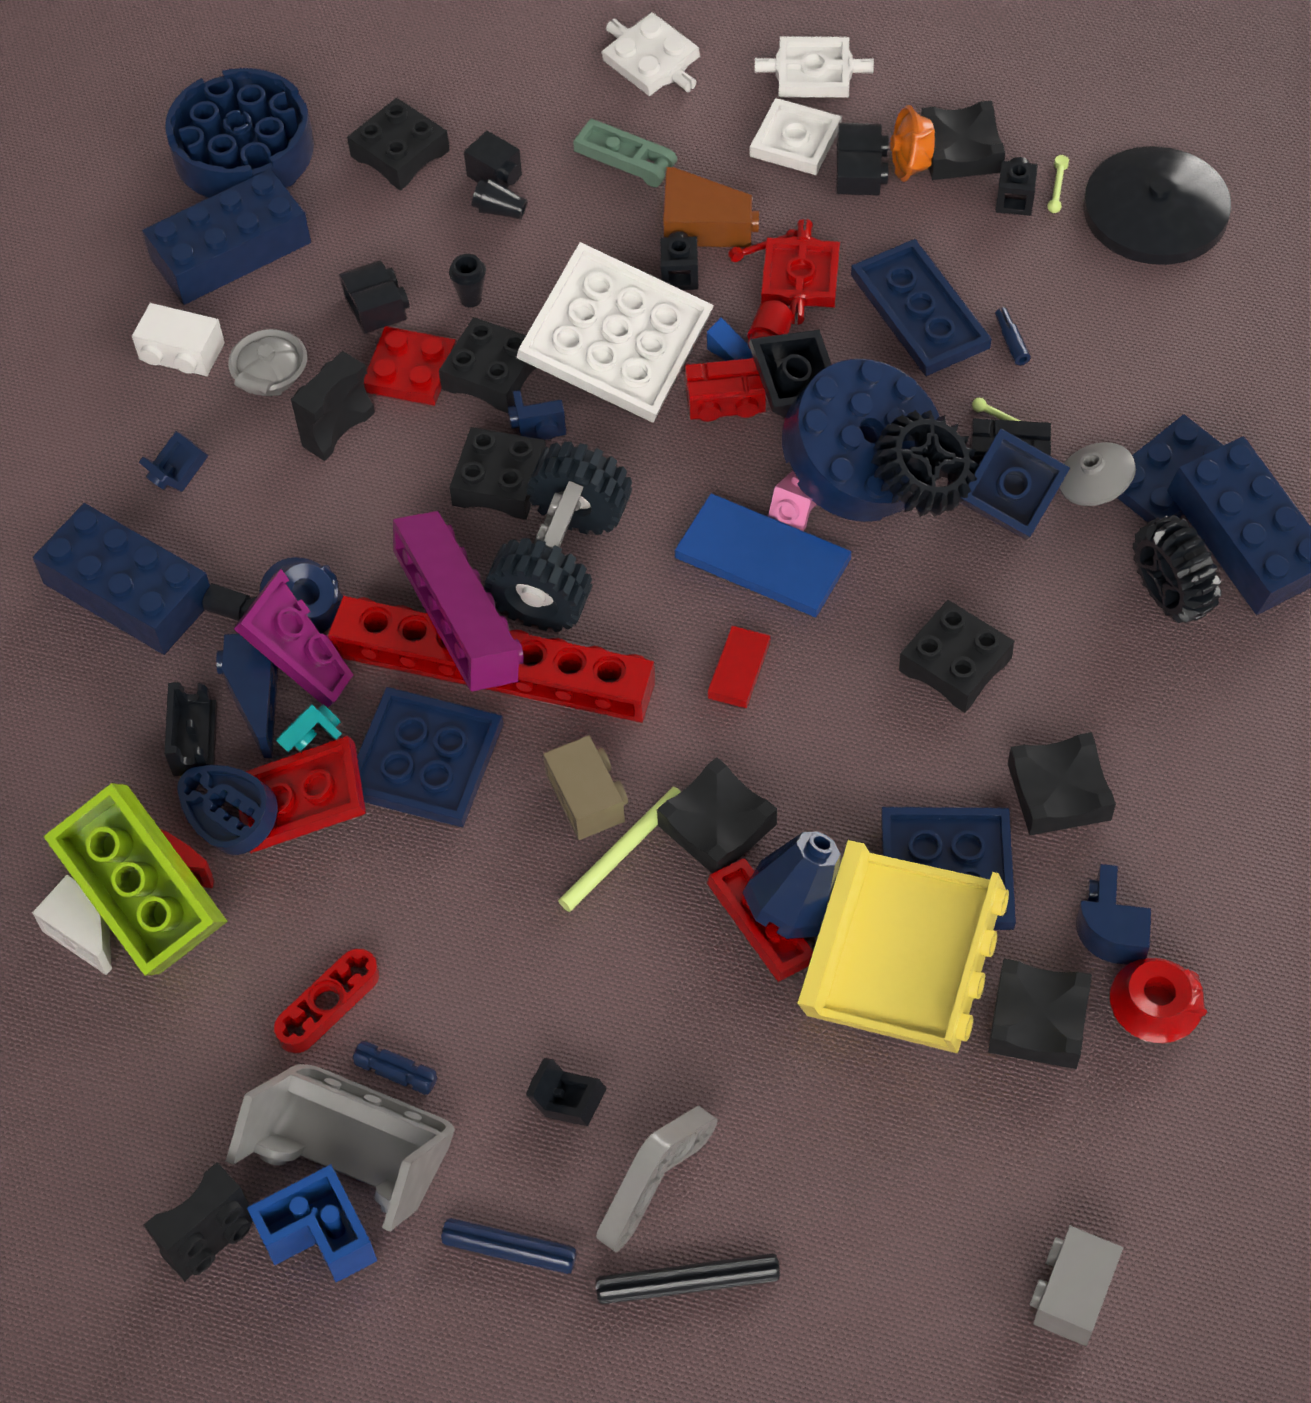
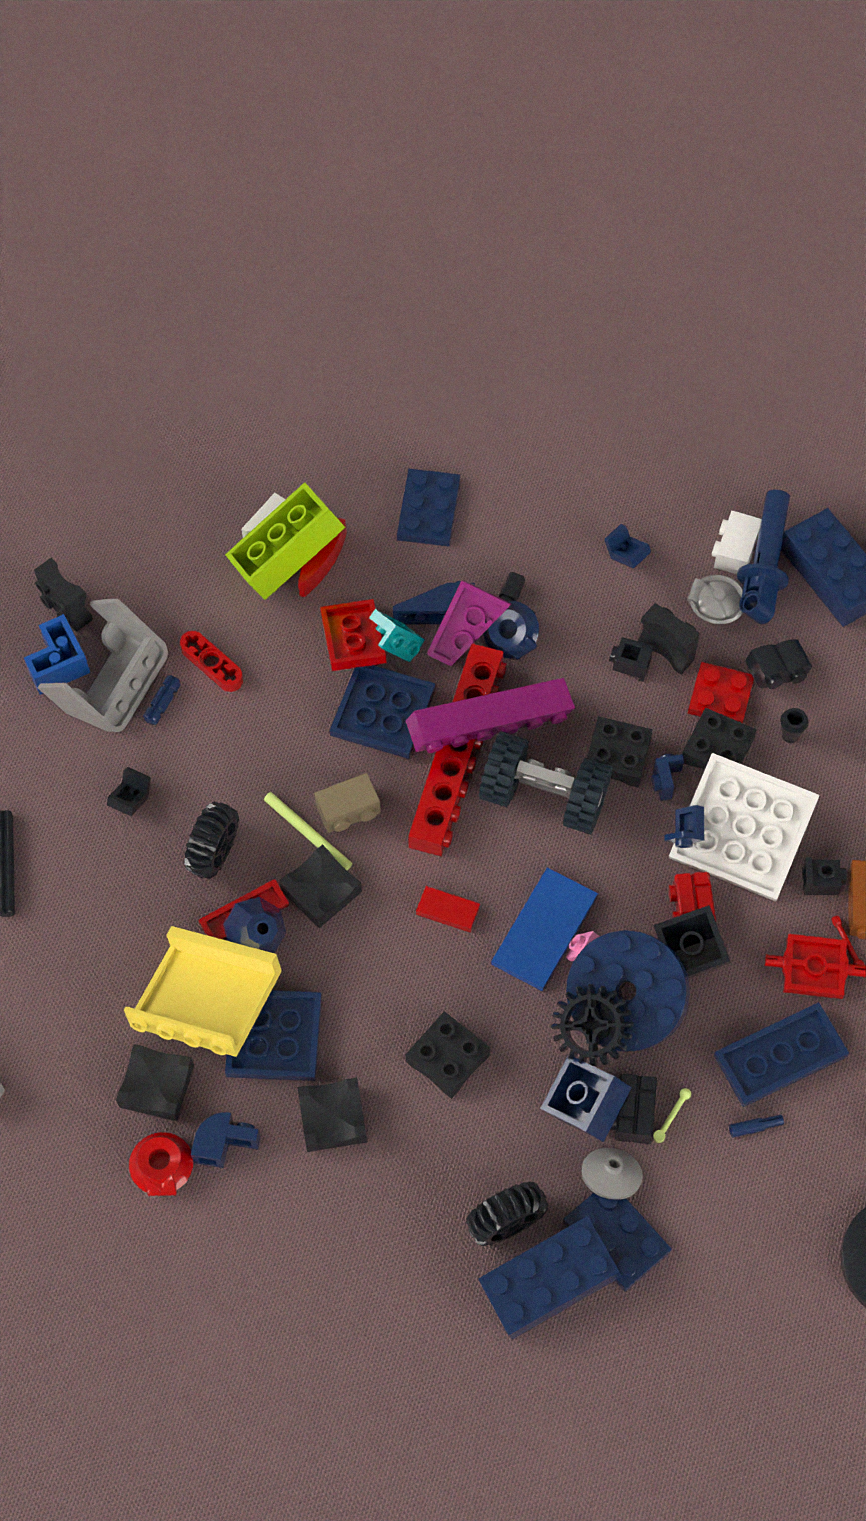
camera: 90 degrees right, 5 degrees up
(71, 716) = (428, 507): none -> dark blue plate
(123, 578) = (529, 524): dark blue brick -> none
(189, 728) = (409, 571): black hinge -> none
(215, 823) = (346, 594): dark blue piece -> none
(242, 302) = (763, 578): none -> dark blue piece
(353, 461) = (631, 658): none -> black brick
(508, 1245) = (39, 764): dark blue axle -> none
(626, 377) = (688, 827): none -> dark blue bracket
(654, 957) = (211, 840): none -> black gear
(655, 1157) = (61, 829): light grey beam -> none
(726, 342) = (741, 913): blue piece -> none
(771, 320) = (754, 939): red brick -> none

